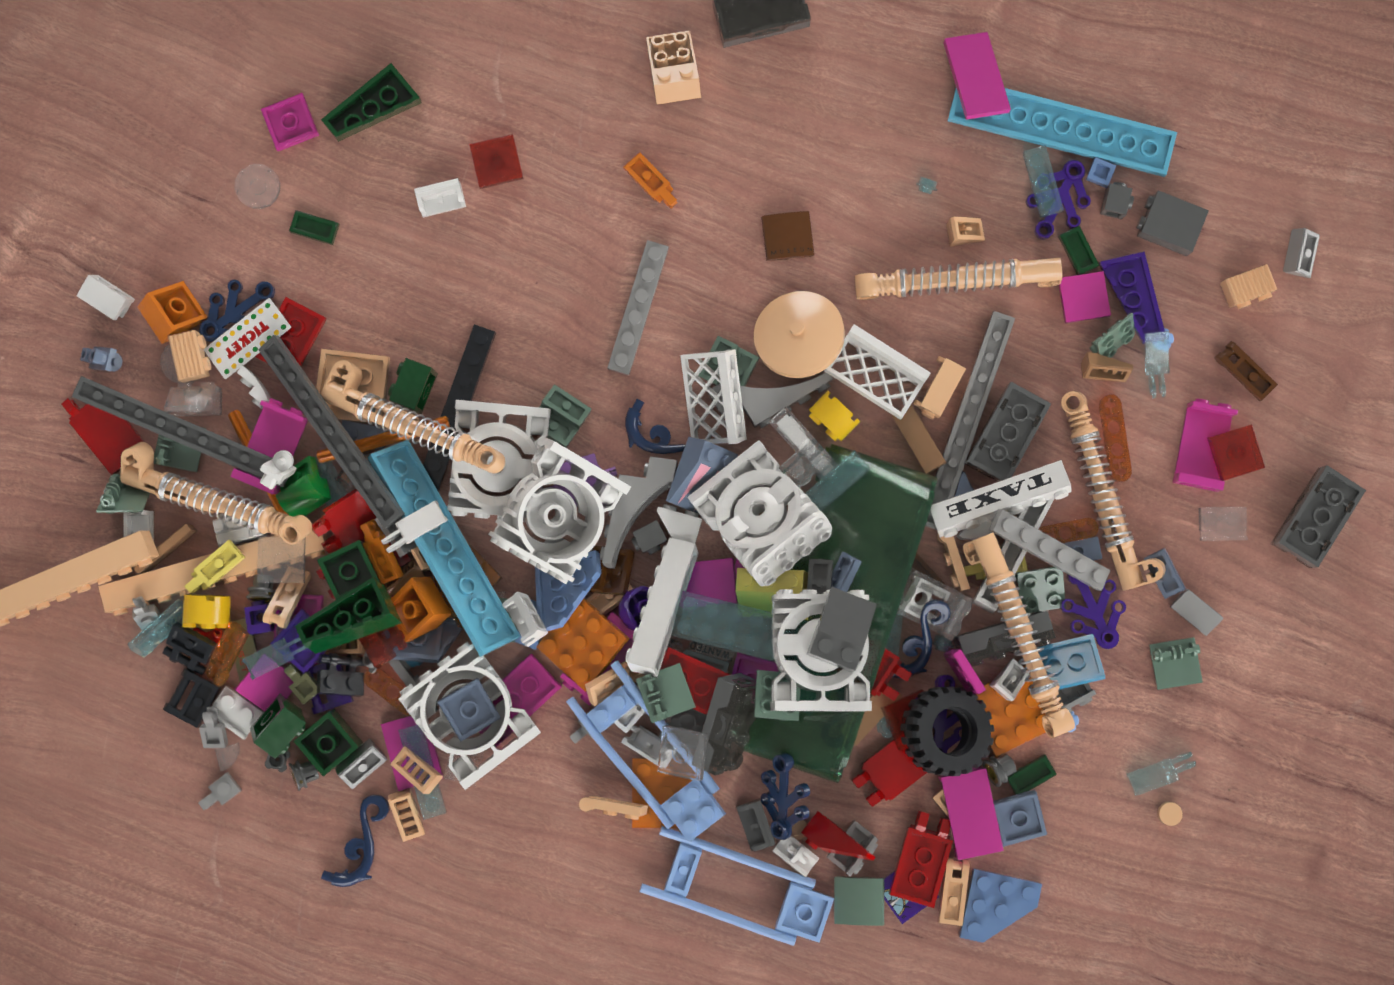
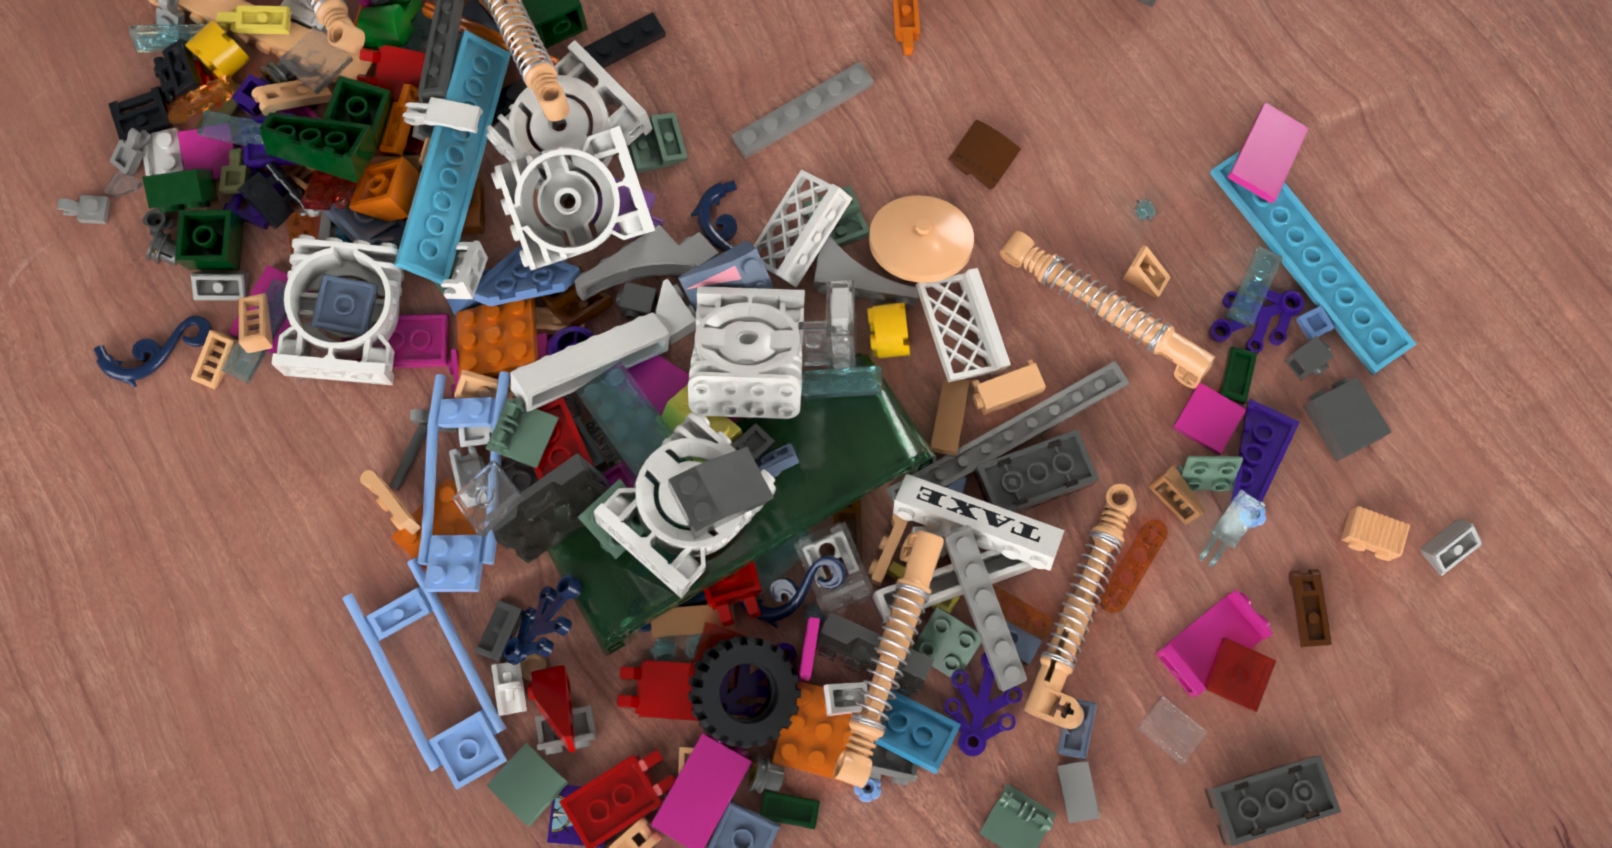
camera: 35 degrees right, 10 degrees down
(594, 766) = (409, 457): none -> dark grey piece
(868, 746) = (663, 650): none -> clear light blue plate

